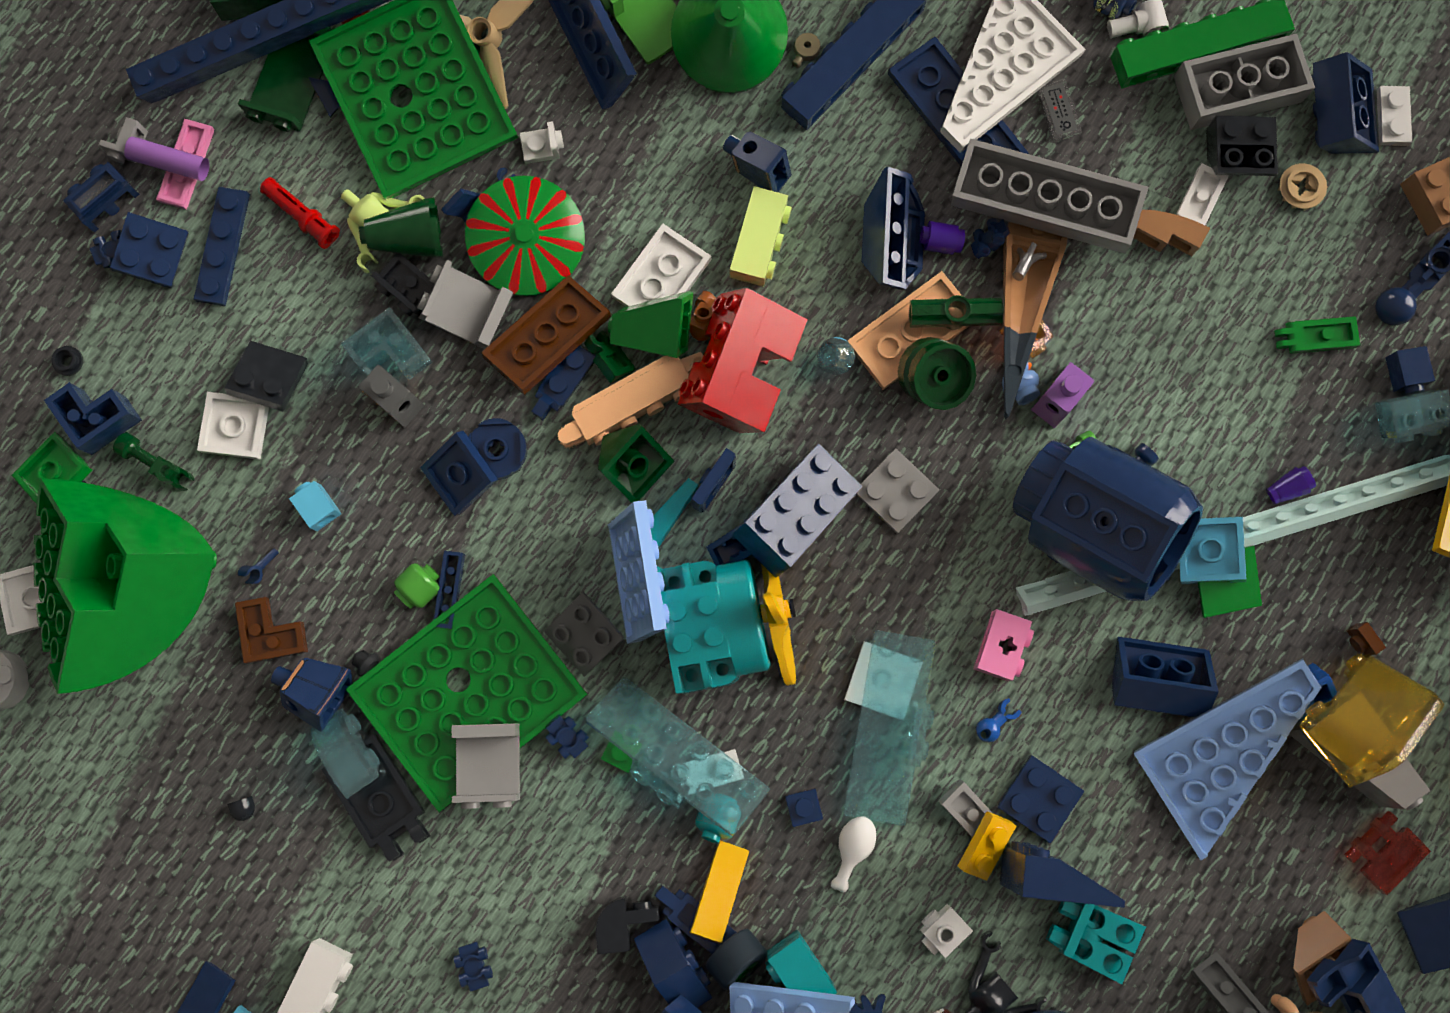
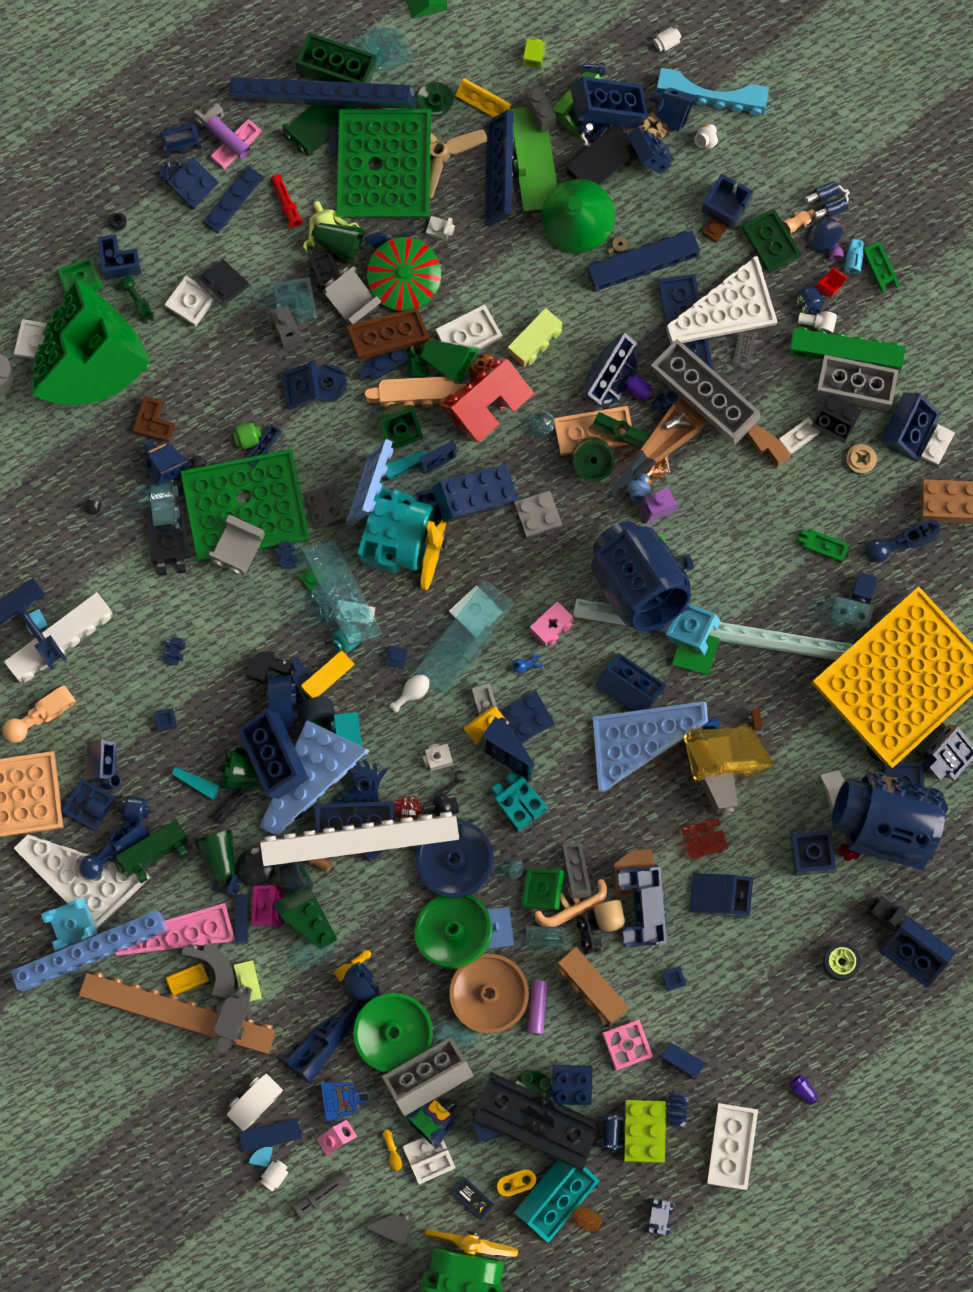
camera: 25 degrees right, 5 degrees down
(256, 570) = (164, 384): dark blue hand -> none
(314, 505) = (213, 365): medium azure brick -> none
(759, 160) = (556, 296): dark blue torso -> none
(1292, 485) = (761, 618): dark purple cone -> none

